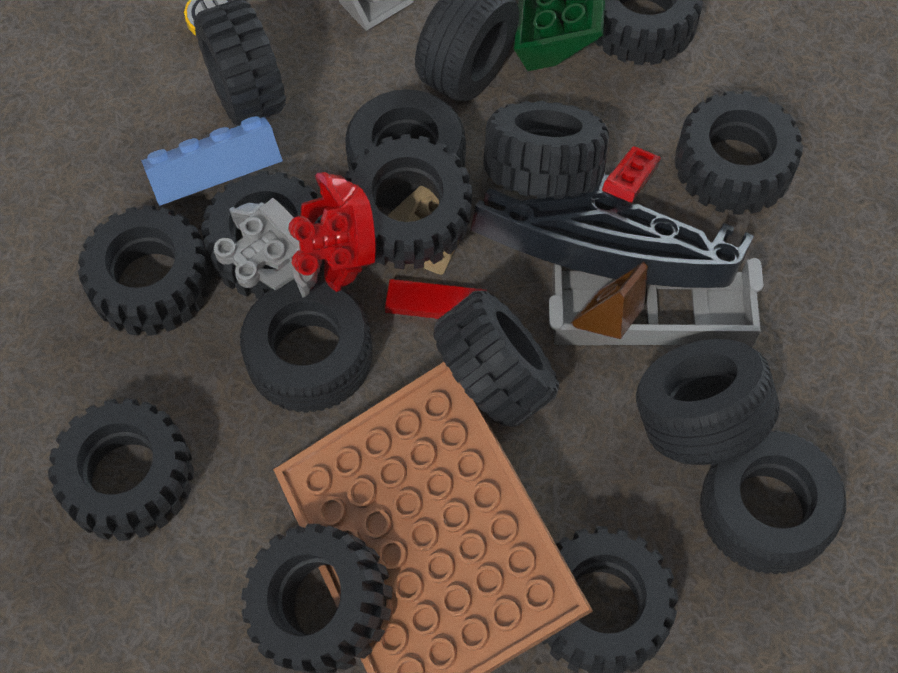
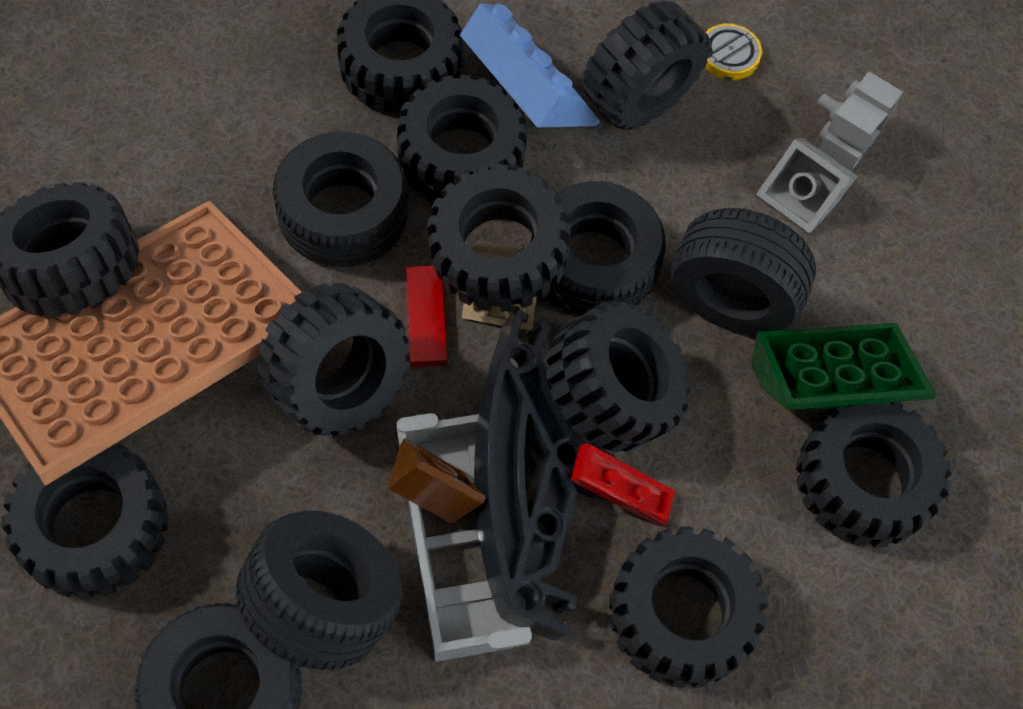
camera: 70 degrees right, 0 degrees up
(97, 435) = (182, 42): black tyre -> none
(264, 243) = (411, 120): light grey piece -> none
(341, 238) = (430, 166): red piece -> none

